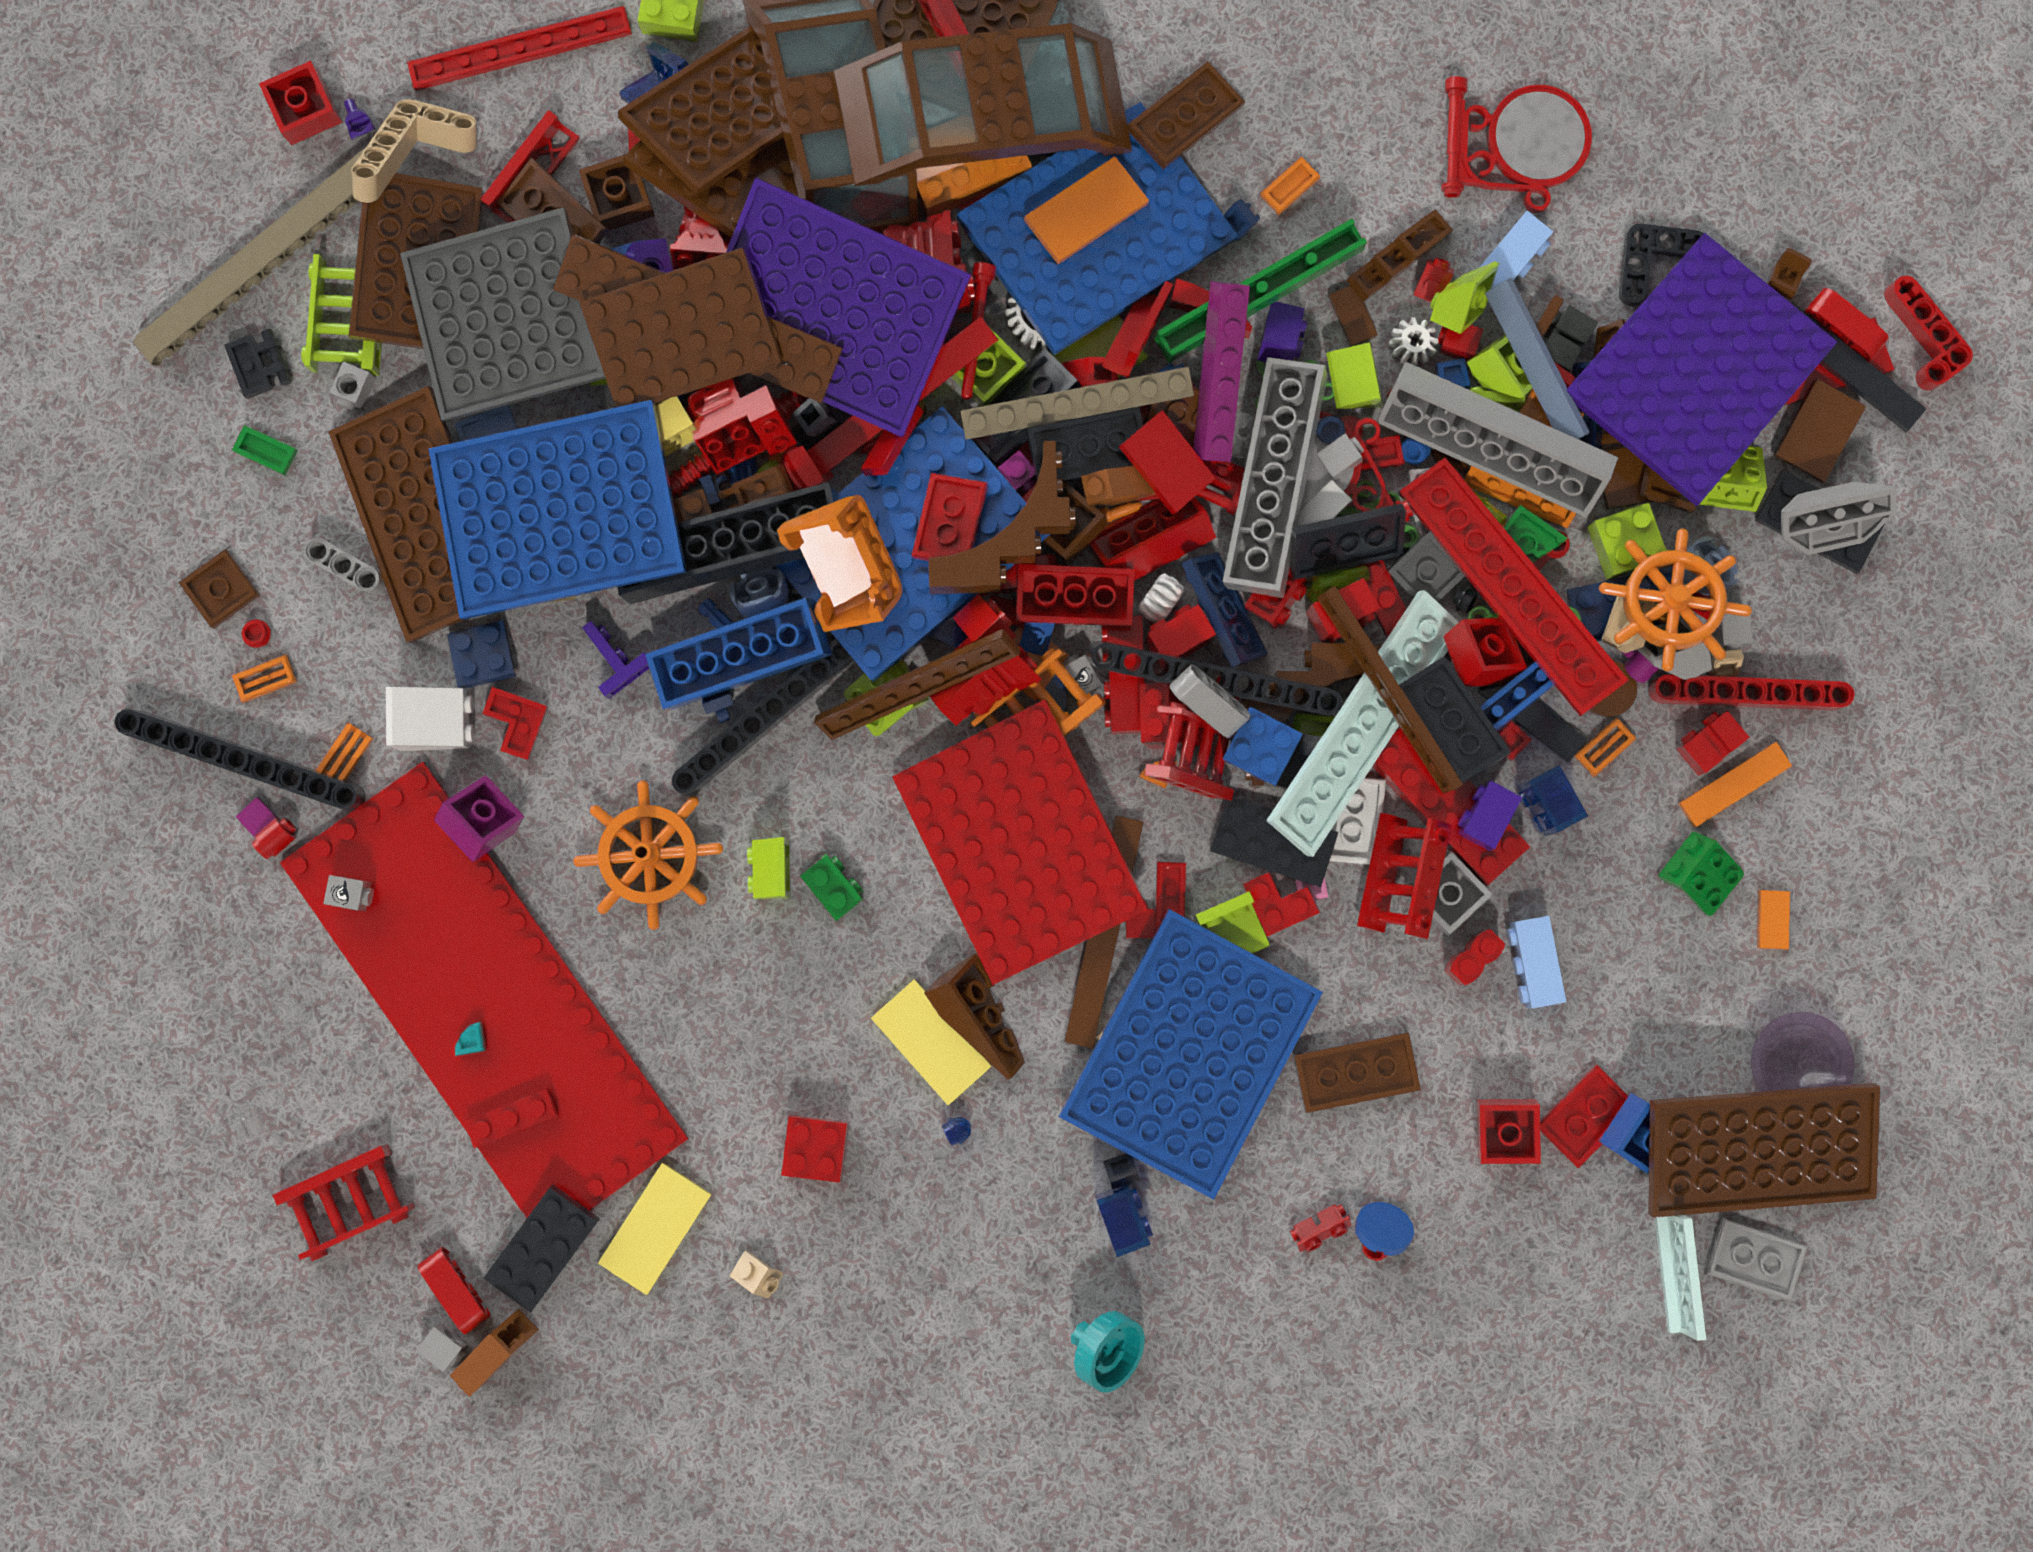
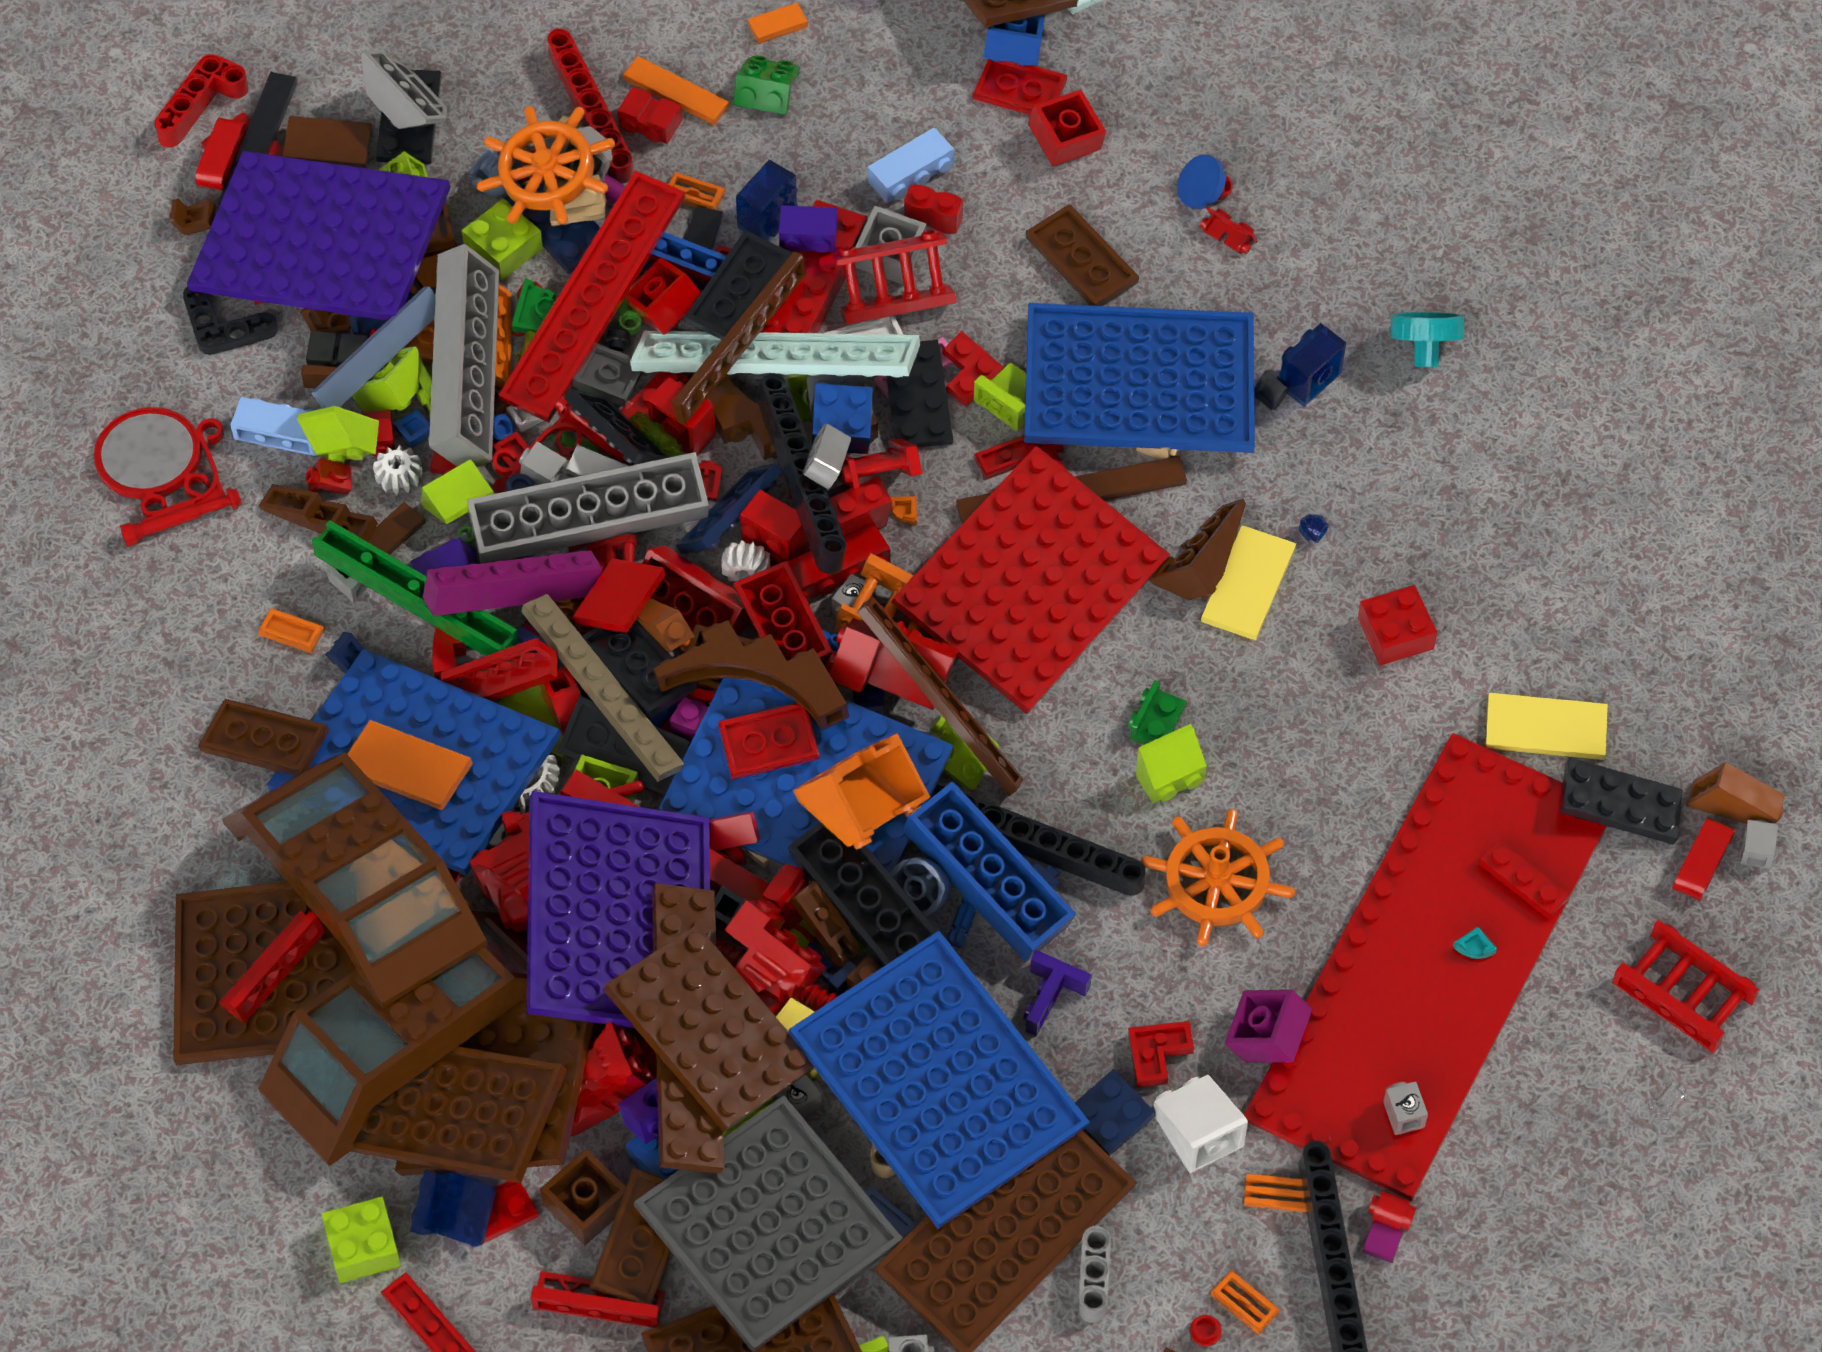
camera: 115 degrees left, 25 degrees down
(756, 1275) = (1535, 627): tan bracket -> none

